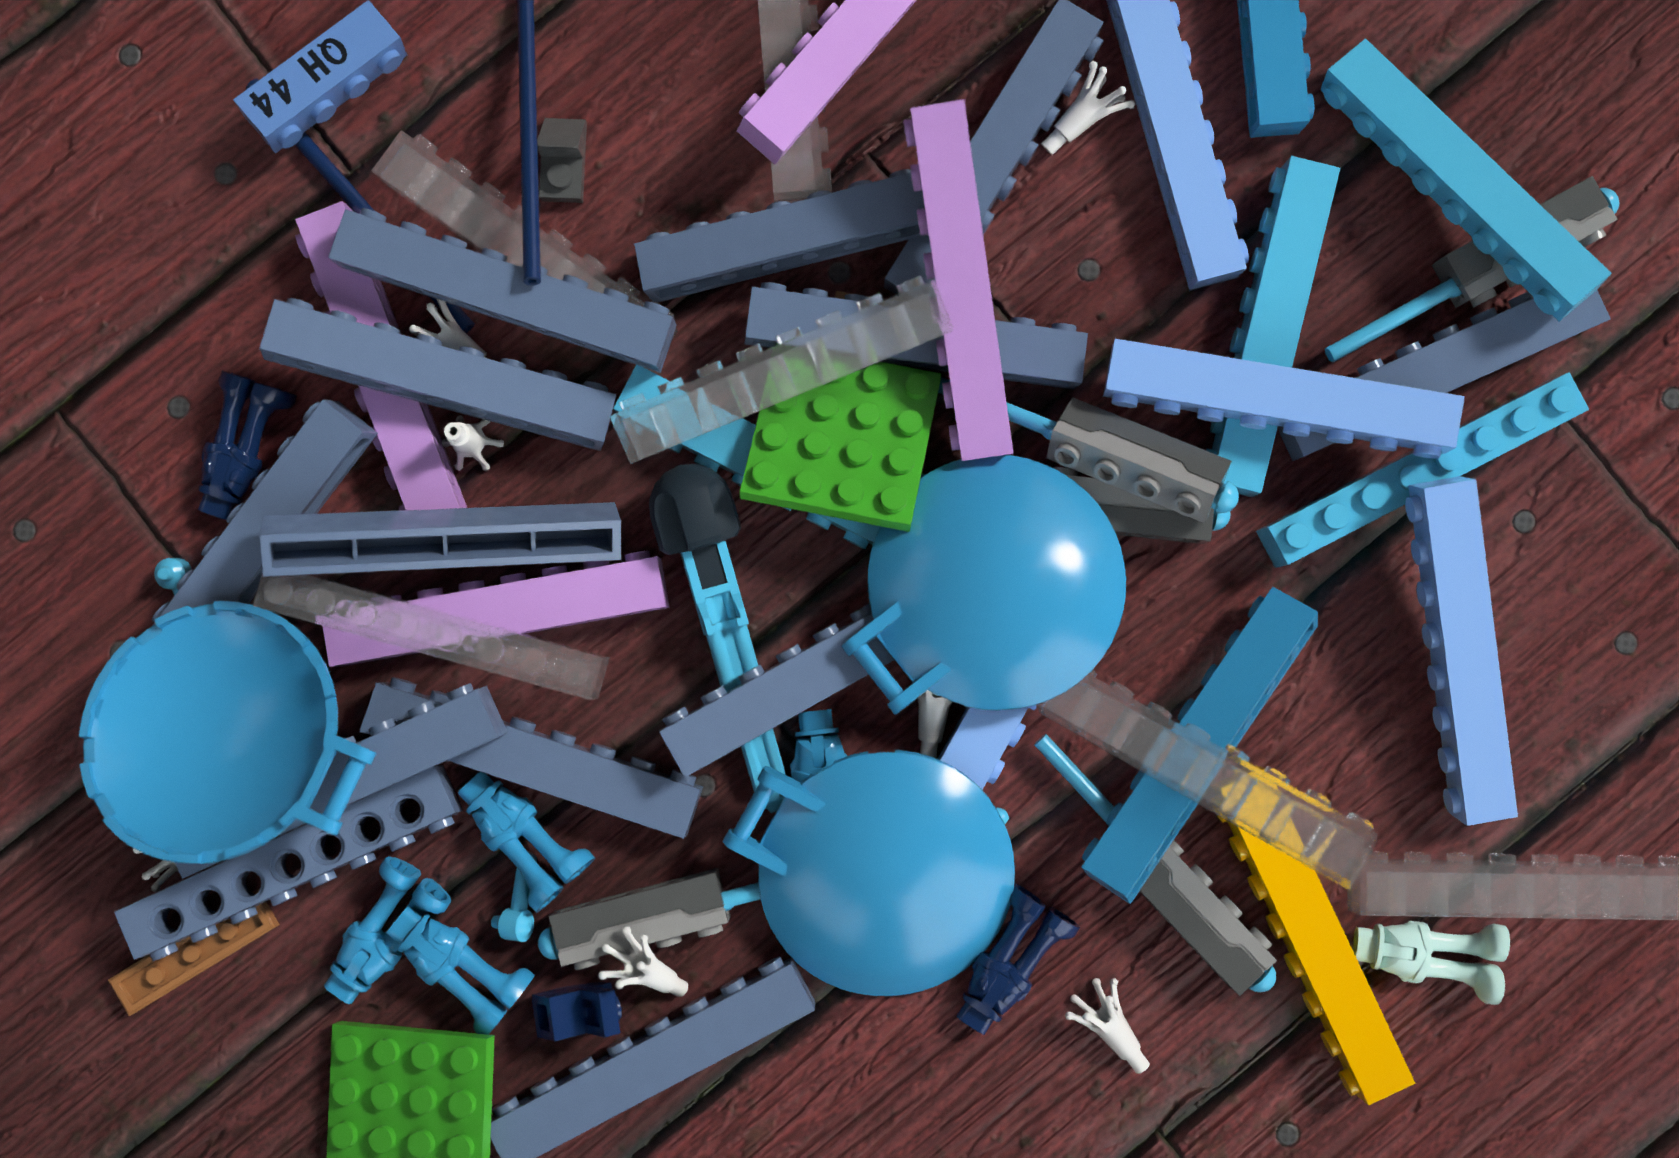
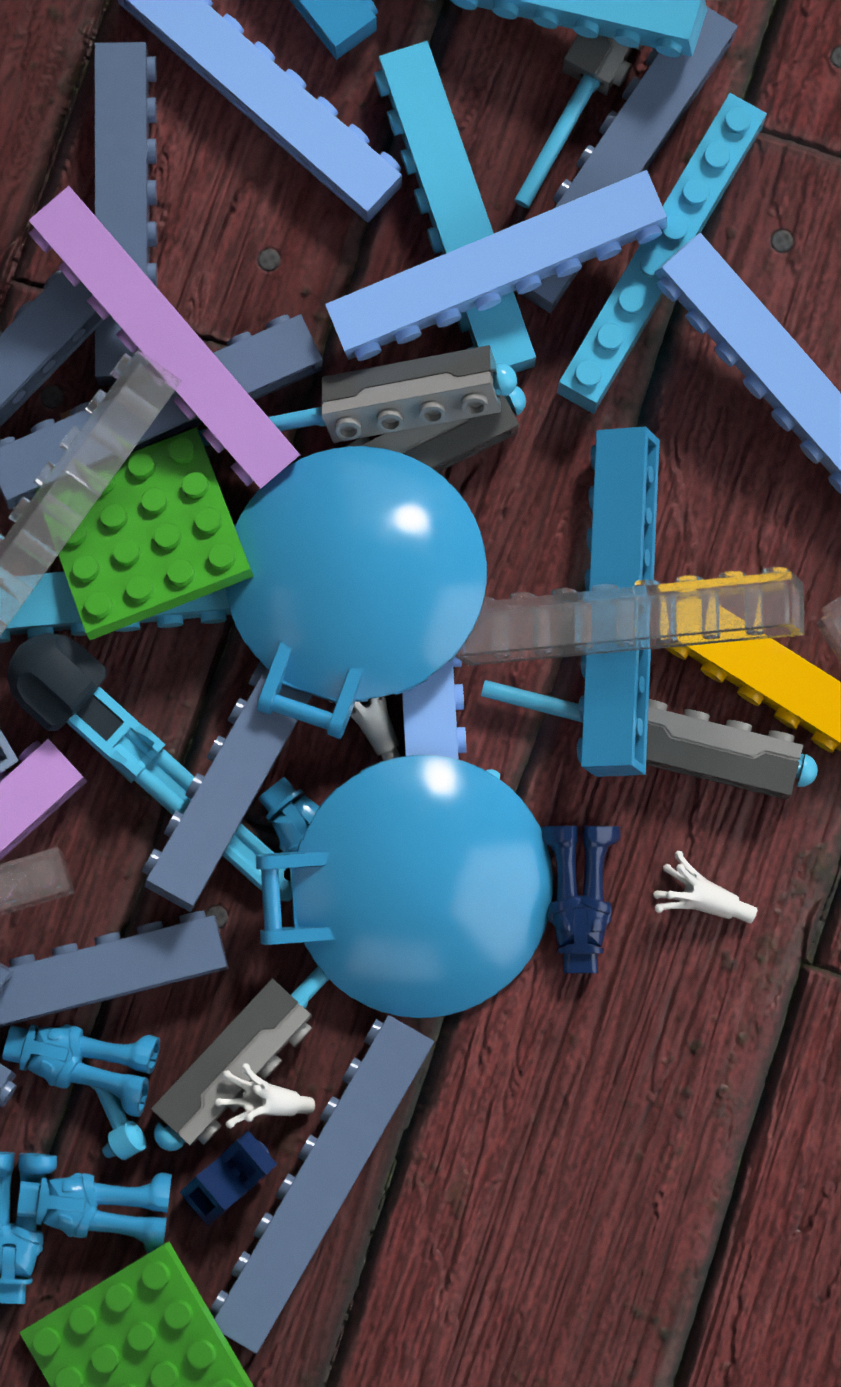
camera: 35 degrees left, 5 degrees down
(1086, 110) = (178, 125): white piece -> none

